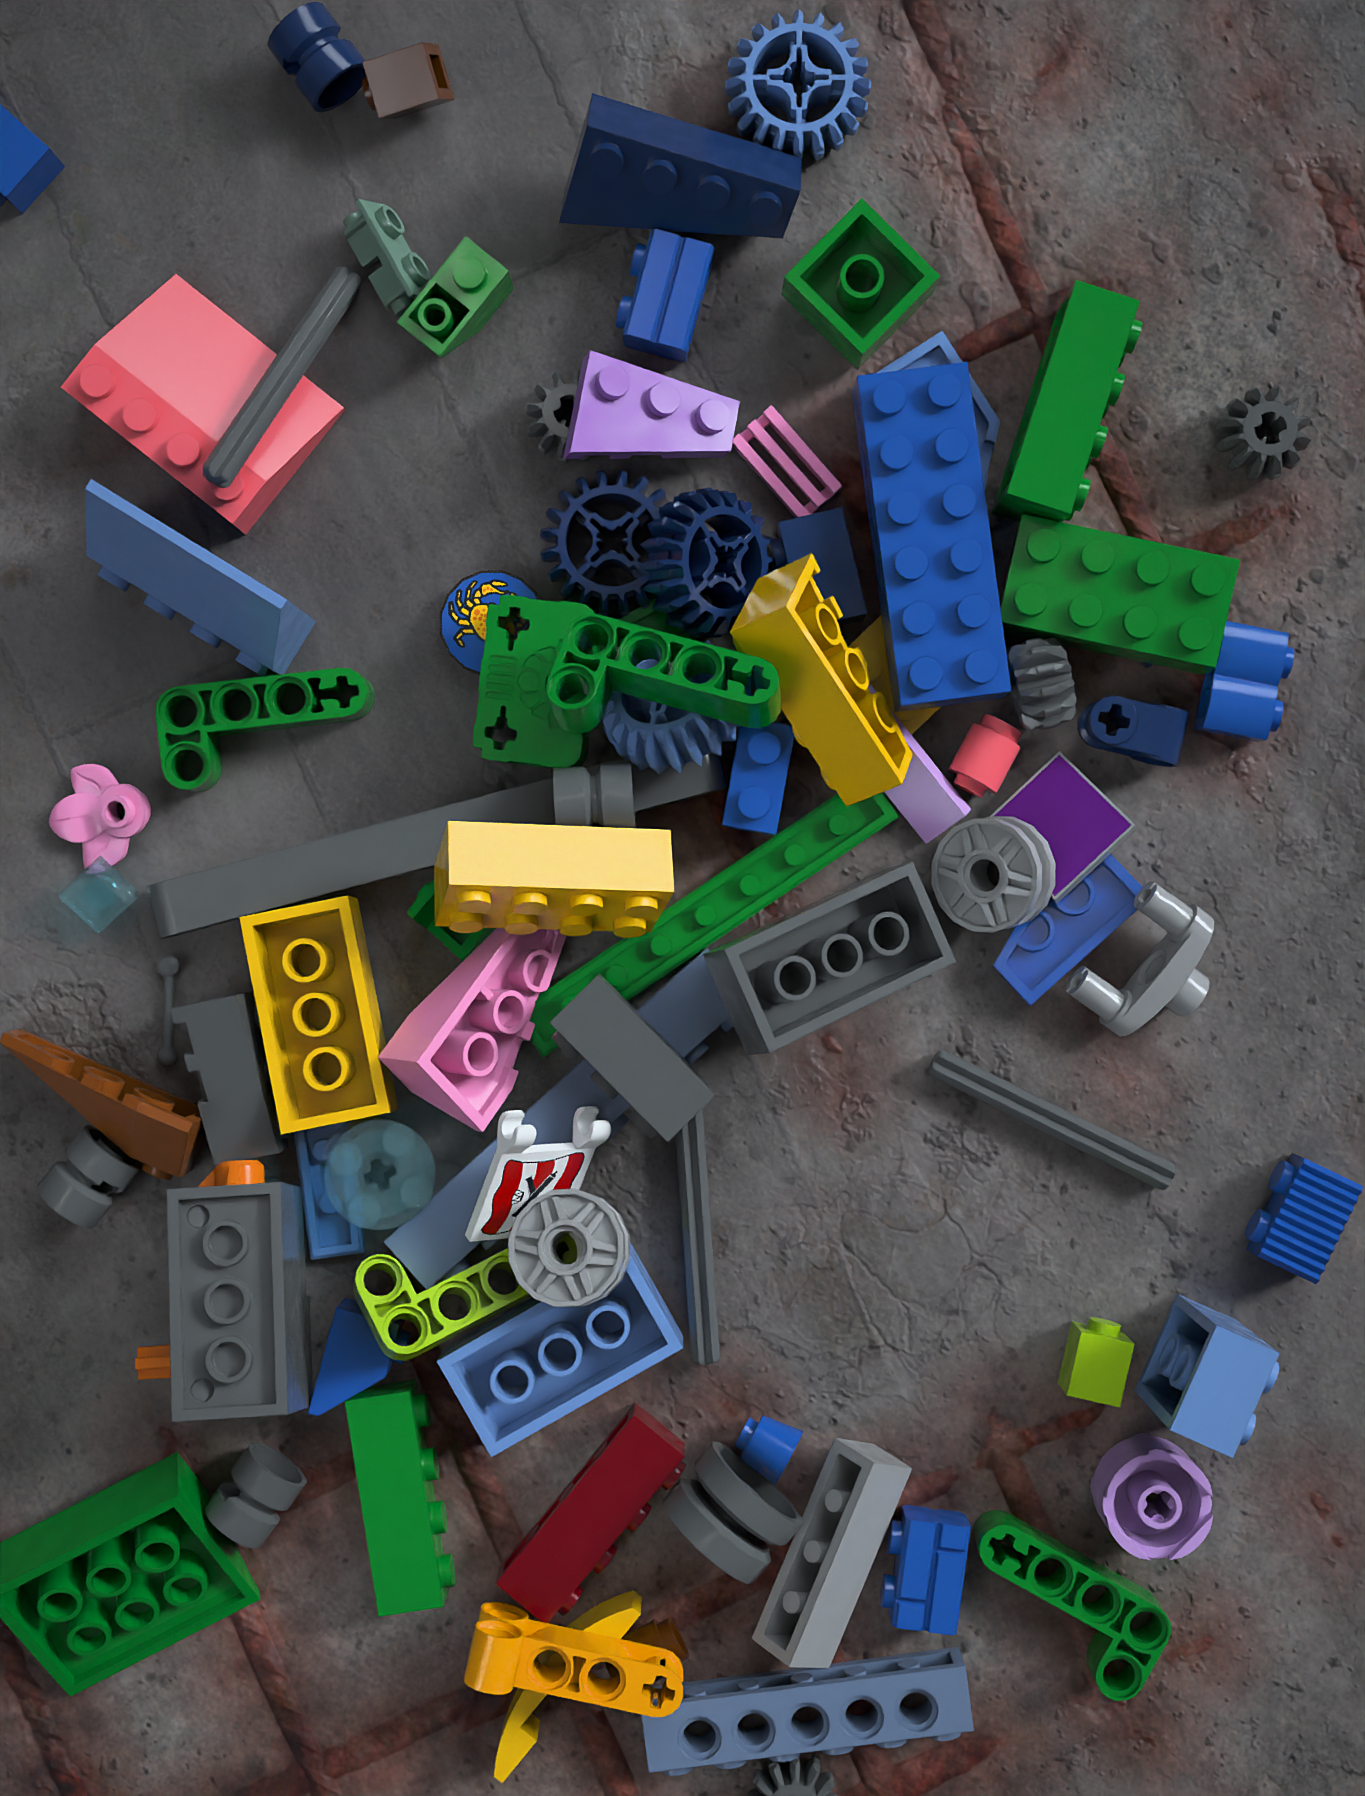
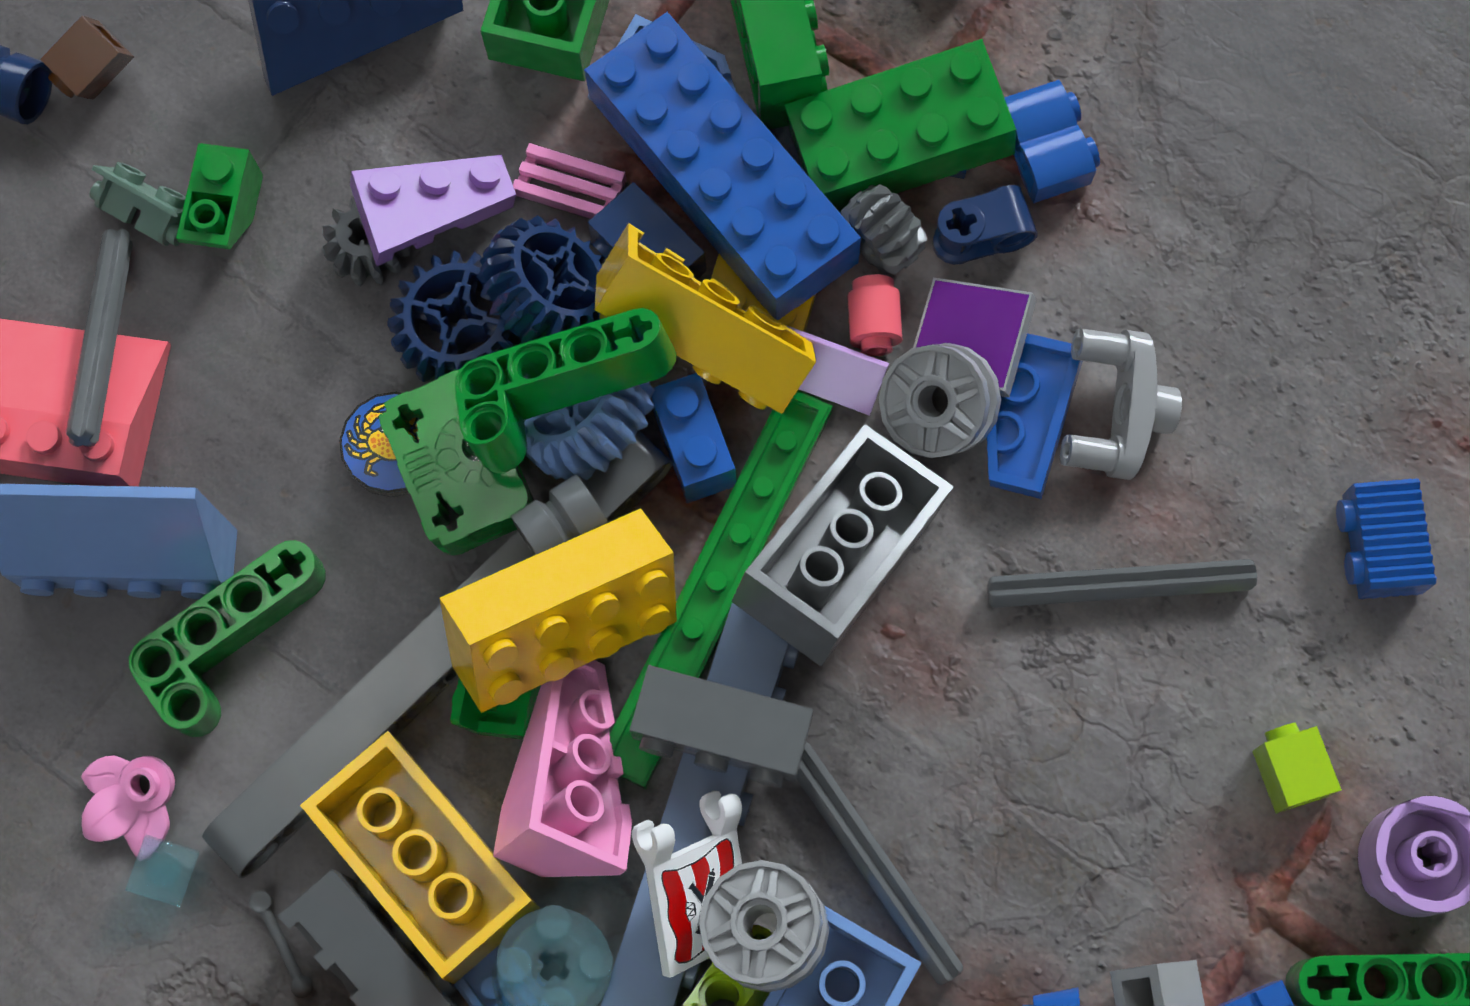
camera: 30 degrees left, 15 degrees down
(666, 295) = (393, 106): blue brick -> none
(1207, 1376) = (1396, 706): medium blue brick -> none

